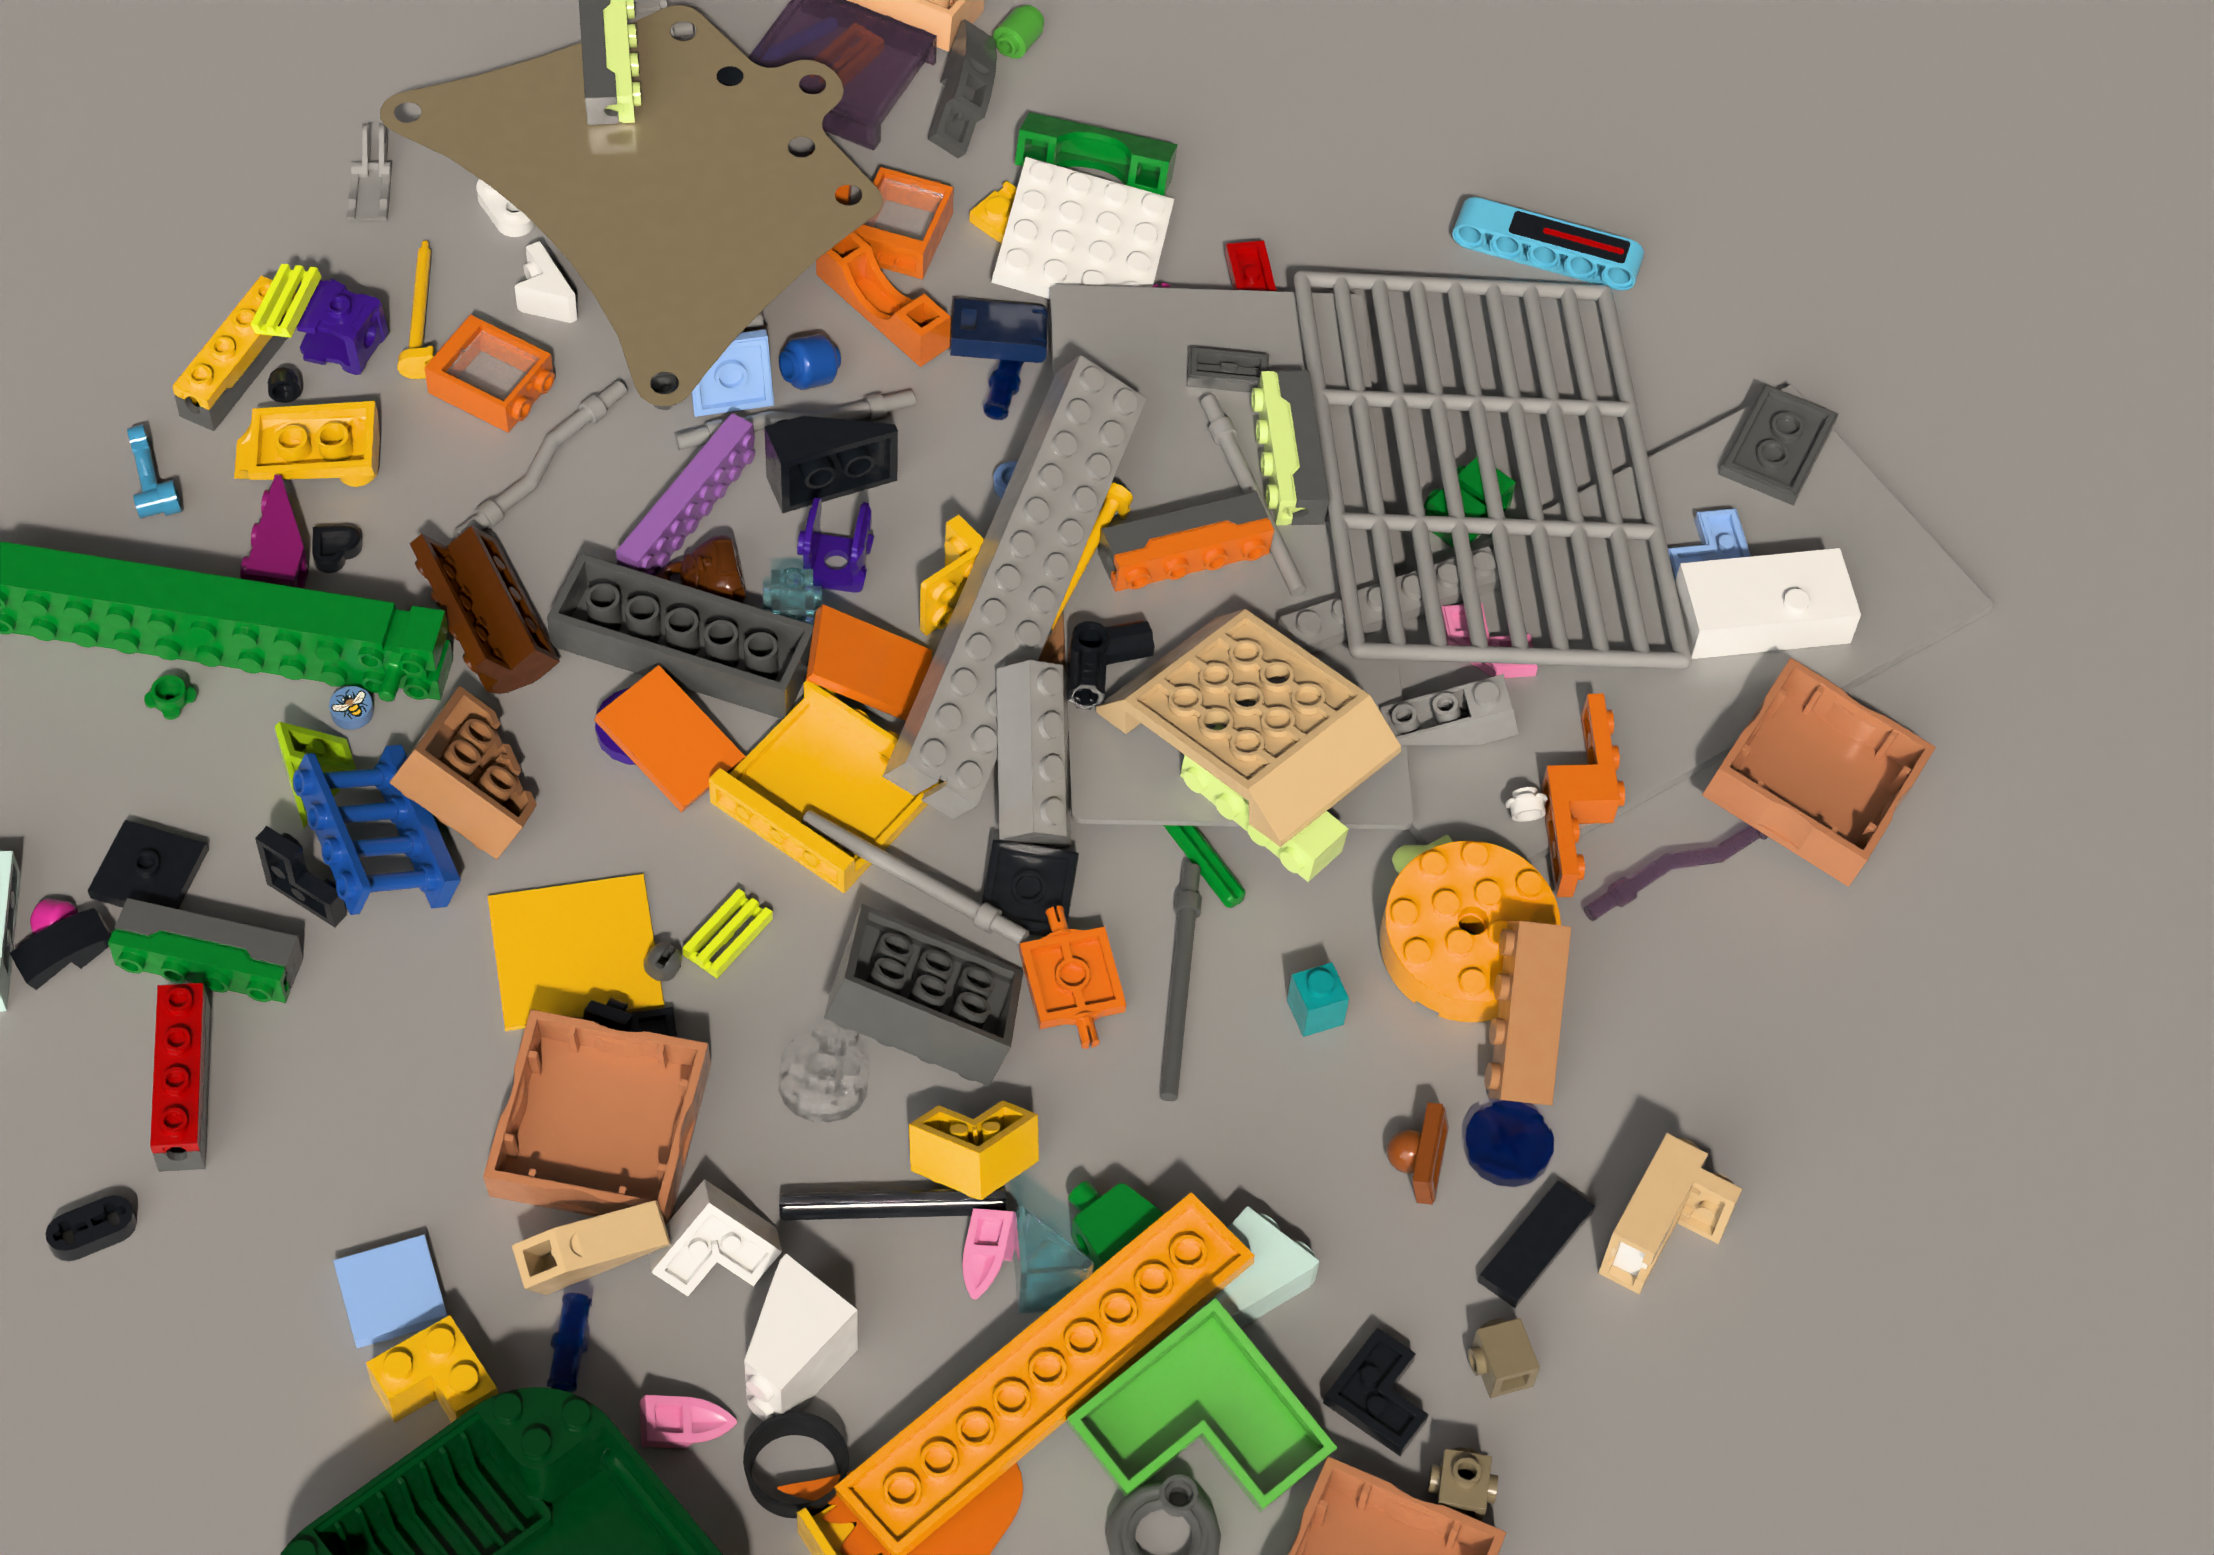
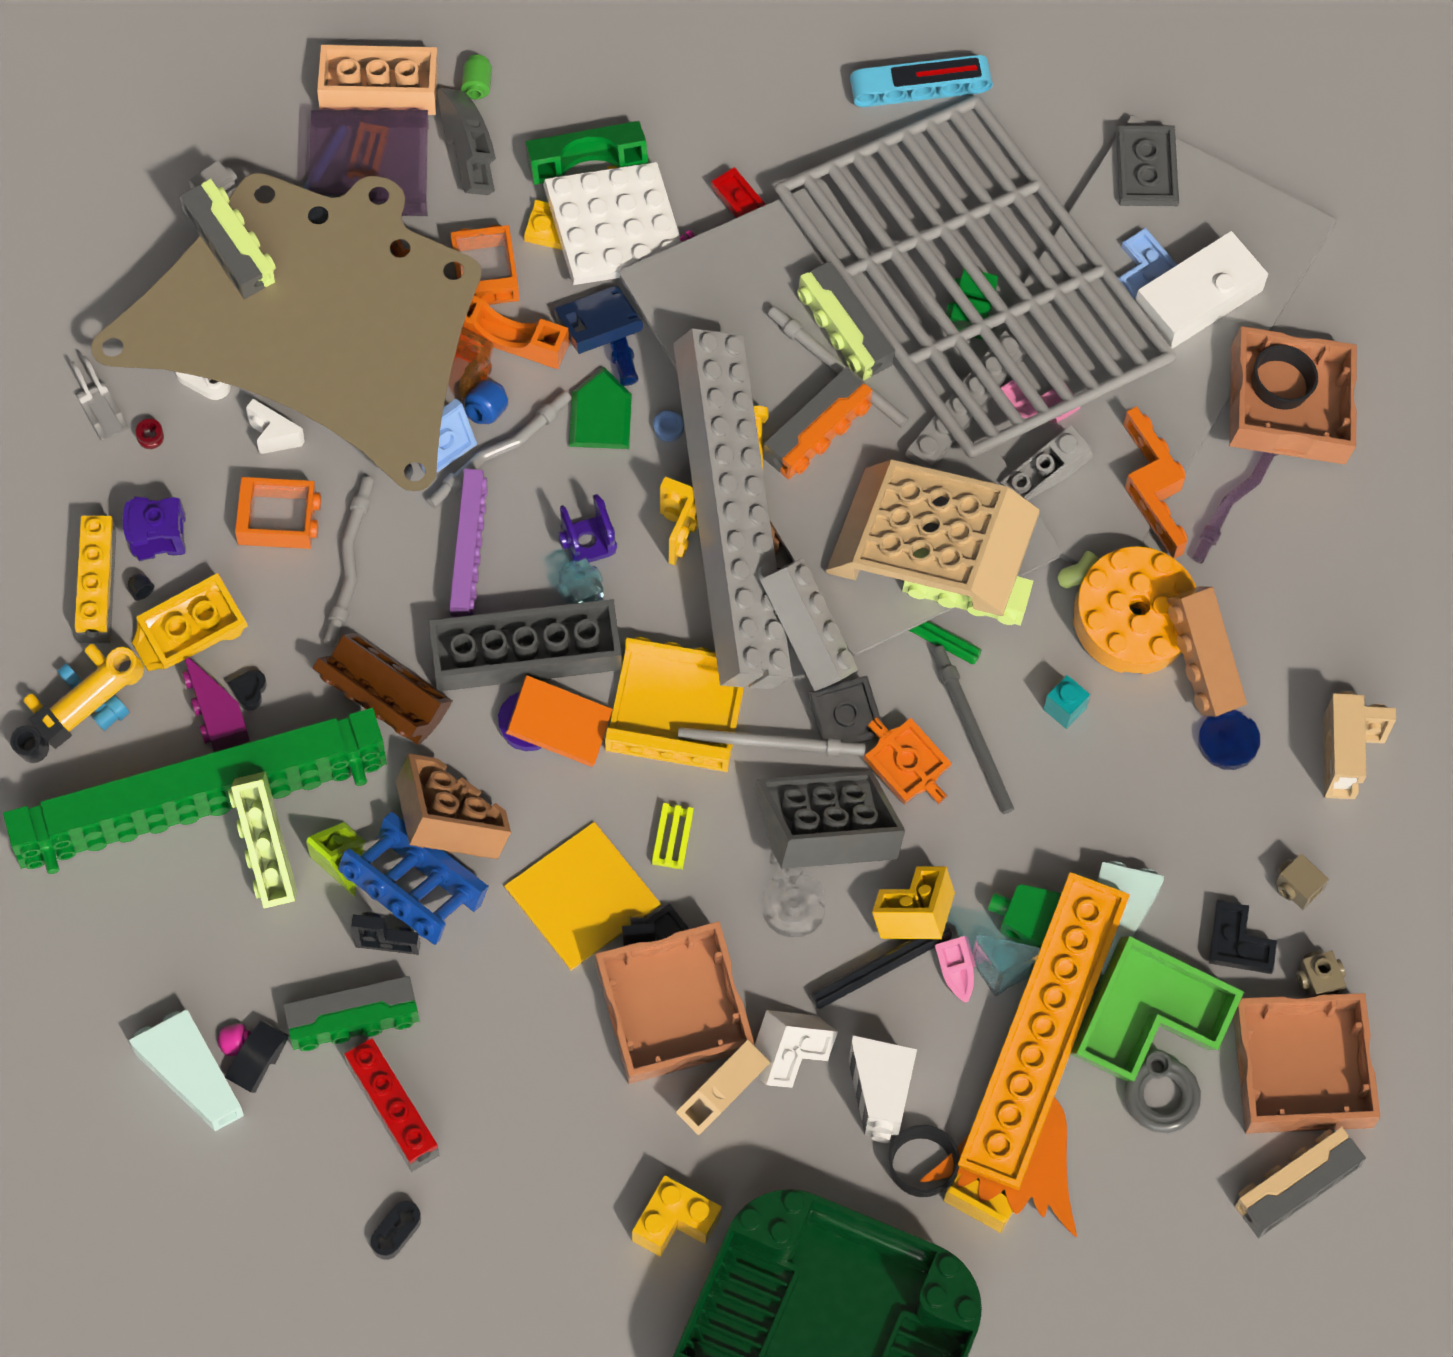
camera: 25 degrees left, 10 degrees up
(81, 479) = (56, 722): none -> yellow piece
(147, 867) = (274, 975): black plate -> none
(167, 687) = (206, 841): green plate -> none
(223, 700) = (264, 840): none -> yellowish green brick
(279, 300) = (111, 506): neon yellow tile -> none
(351, 707) = (334, 798): medium blue tile -> none
(390, 1291) = (608, 1176): light blue tile -> none
(401, 226) = (149, 424): none -> dark red bush
(415, 358) = (218, 527): yellow piece -> none
(569, 1342) = (739, 1153): clear blue pin -> none
(656, 970) = (639, 874): dark grey hinge -> none
(681, 1421) = (837, 1169): bright pink plate -> none
(712, 569) = (512, 590): reddish brown piece -> none
(809, 306) = (479, 363): none -> clear orange piece
(827, 458) = (542, 472): black slope -> none
(866, 662) = (659, 607): orange tile -> none
(943, 434) = (600, 413): none -> green tile
(1097, 646) = (812, 524): black piece -> none
(1227, 375) = (772, 285): dark grey tile -> none
(1422, 1152) = (1176, 774): dark orange tile -> none
(1527, 804) = (1125, 505): white plate -> none
(1536, 1244) = (1280, 797): black tile -> none
(1831, 718) = (1297, 359): none -> black tyre

